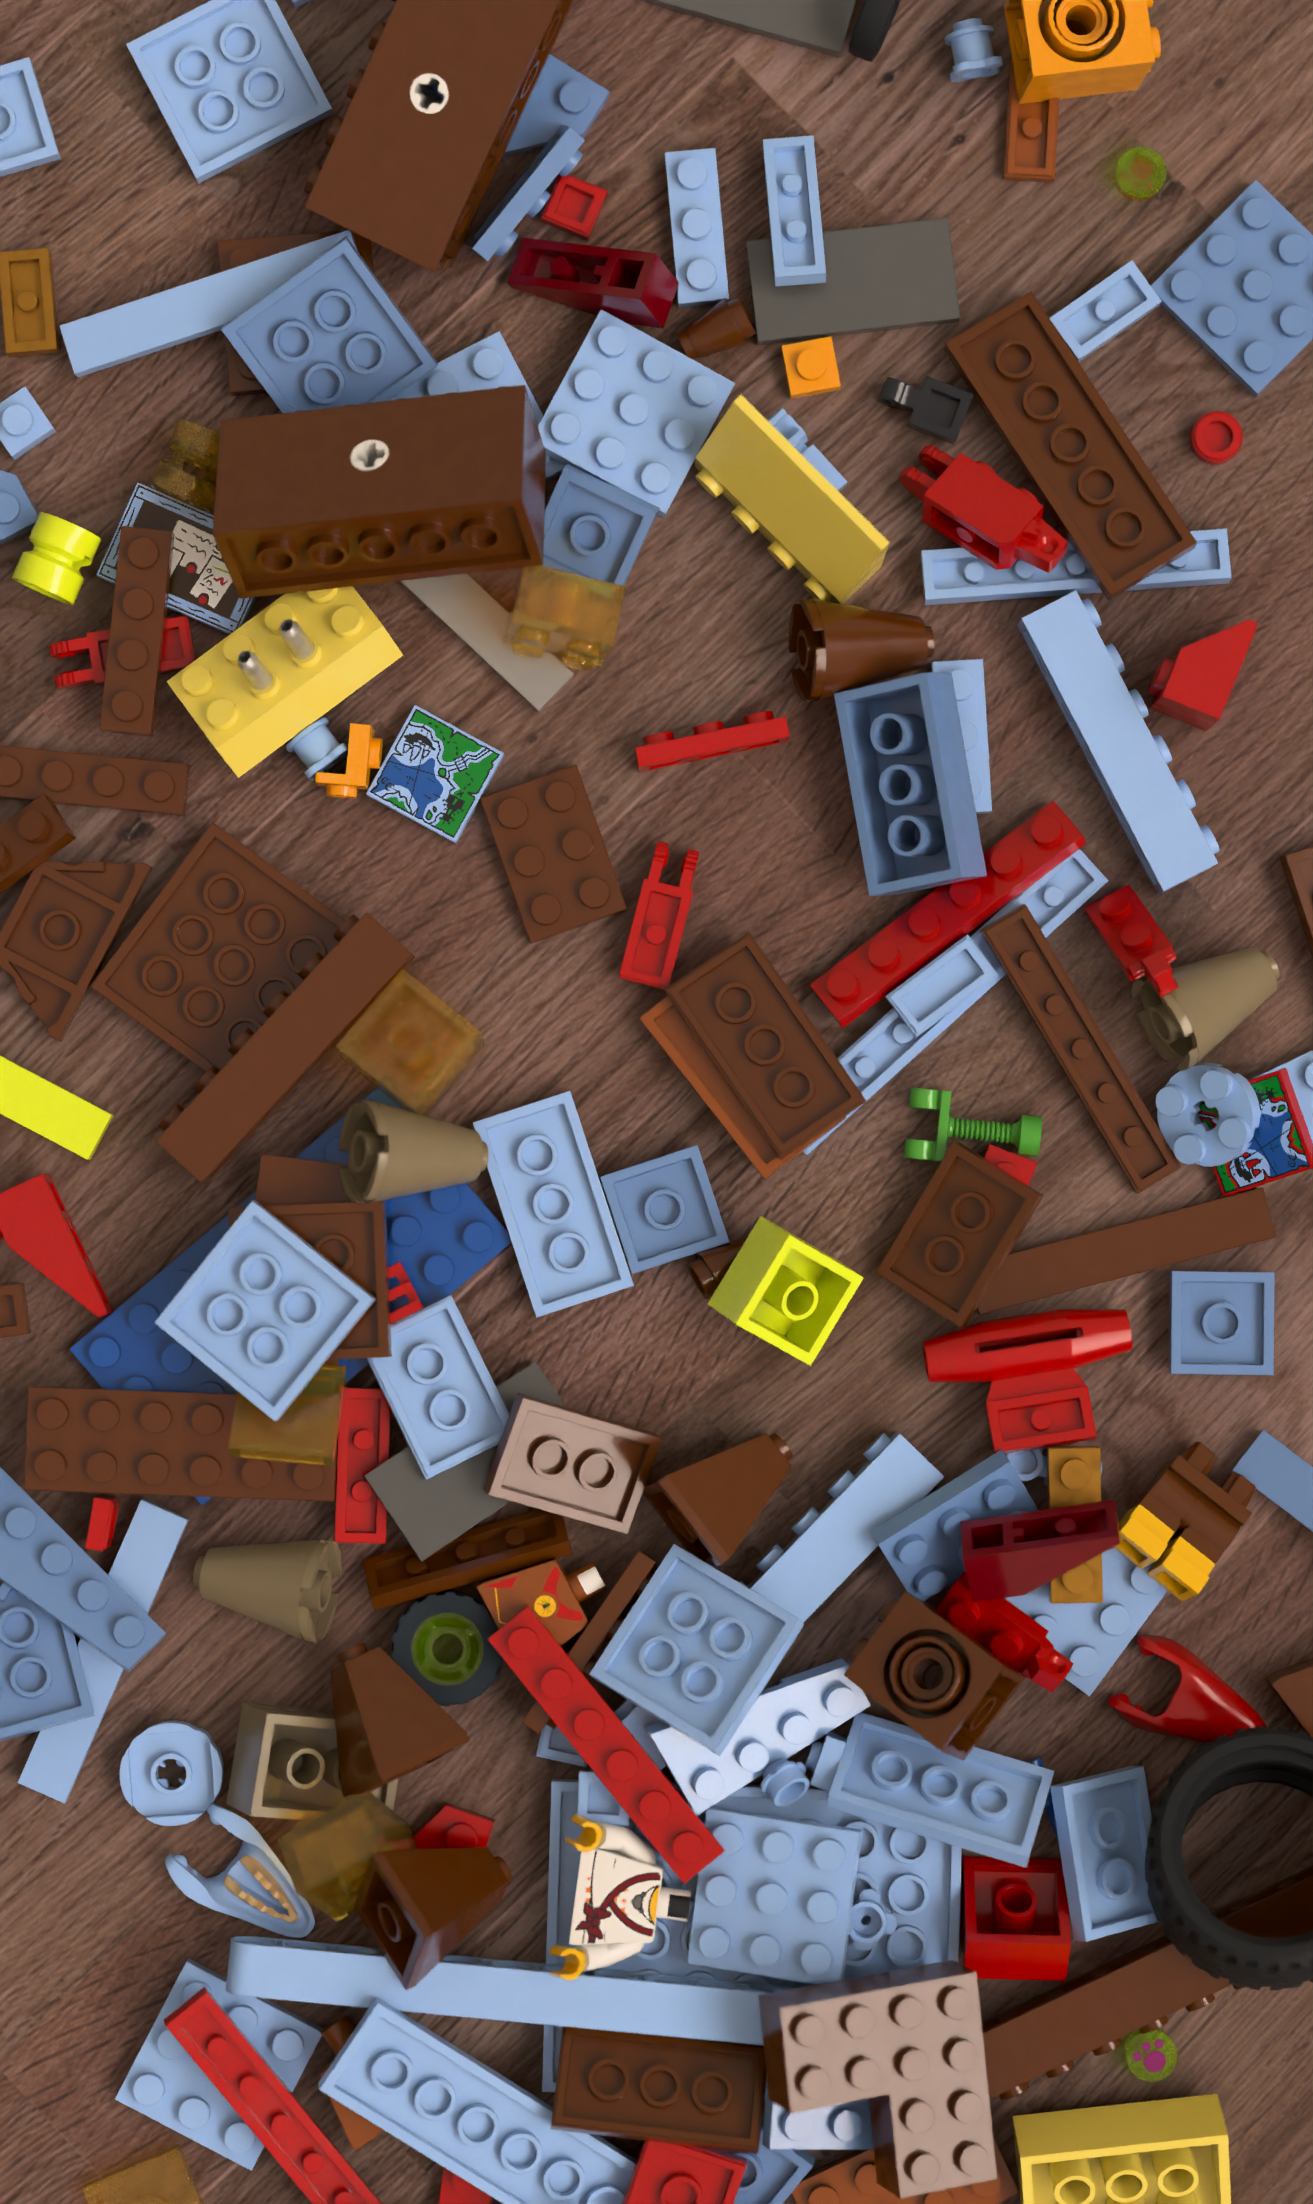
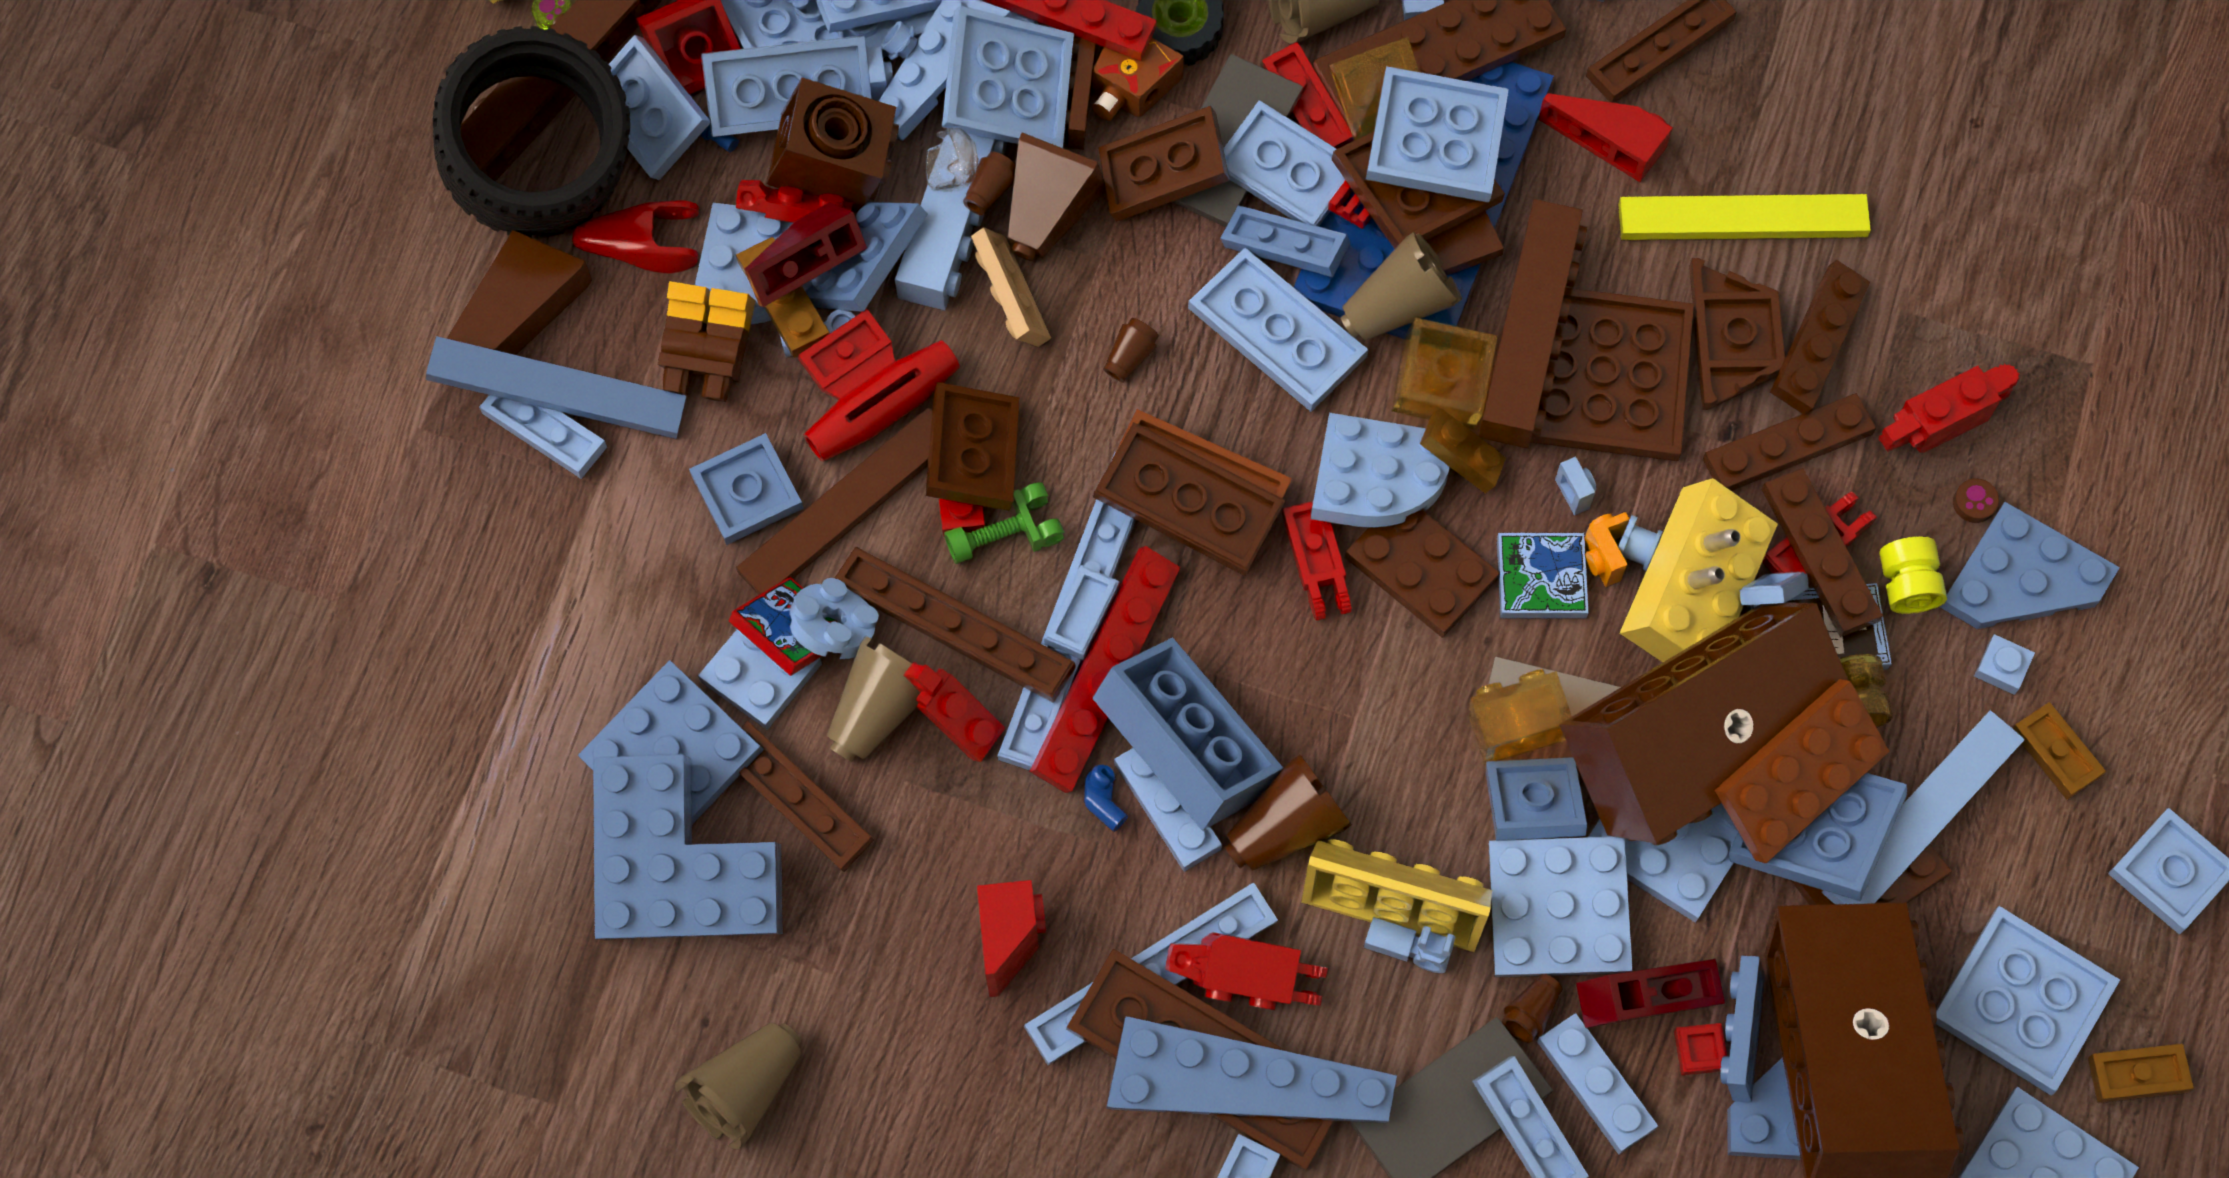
camera: 155 degrees right, 20 degrees down
(219, 608) = (1774, 588): none -> light blue tile
(322, 390) = (1802, 771): none -> dark orange plate
(341, 848) = (1576, 485): none -> light blue plate
(442, 947) = (1463, 450): none -> pearl gold plate
(468, 1558) = (1192, 83): reddish brown plate -> none
(490, 1297) = (1285, 240): none -> medium blue plate
(542, 976) = (1375, 473): none -> light blue plate
(664, 1209) = (1196, 364): medium blue plate -> none
(711, 741) = (1353, 697): red plate -> none
(783, 1534) = (991, 180): none -> reddish brown cone
(785, 1291) = (1078, 341): neon yellow brick -> none
(810, 367) = (1444, 1021): light orange plate -> none
(815, 1576) = (953, 162): none -> clear hair
(817, 1416) = (1010, 287): none -> tan plate
(934, 408) = (1330, 1037): black plate -> none
(1027, 781) = (1099, 797): none -> blue arm
(1076, 419) = (1209, 1074): none -> medium blue wing
(1118, 742) = (1047, 855): light blue brick -> none
(1216, 438) = (1094, 1138): red tile -> none

